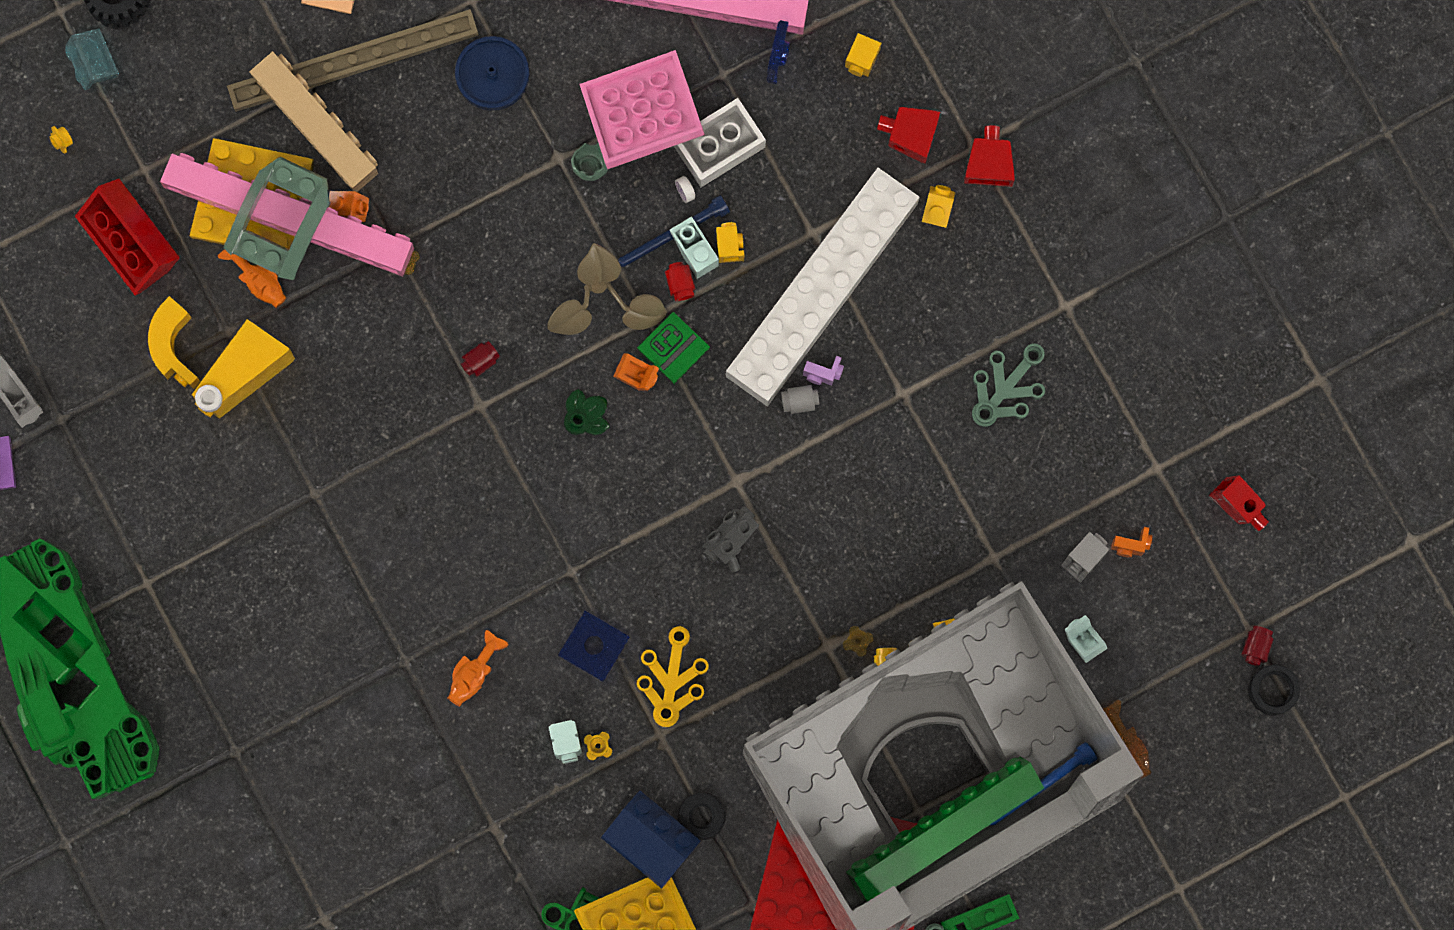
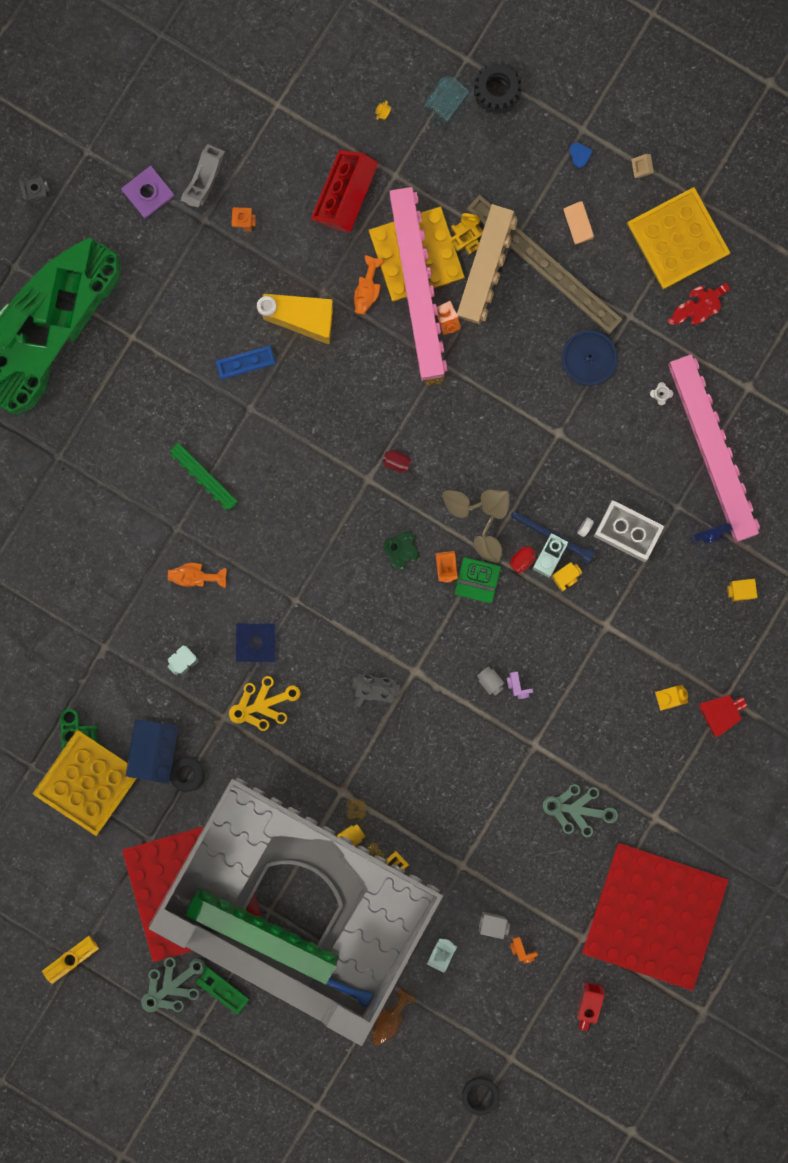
camera: 60 degrees right, 5 degrees up
(87, 369) = (243, 218): none -> orange bracket
(161, 337) = (289, 253): yellow arch -> none
(257, 467) = (245, 362): none -> blue tile
(263, 251) = (383, 281): sand green wedge -> none
(272, 129) = (468, 223): none -> yellow piece
(362, 594) = (203, 477): none -> green piece
(577, 11) = (666, 393): none -> white plate
(589, 162) = (567, 456): sand green hair -> none
(601, 739) = (188, 682): yellow plate -> none
(641, 109) = (620, 468): bright pink plate -> none
(822, 287) = (573, 653): white brick -> none
(911, 131) = (710, 650): red torso -> none
(1179, 371) = (655, 916): none -> red plate
(1257, 645) = (502, 1069): dark red brick -> none

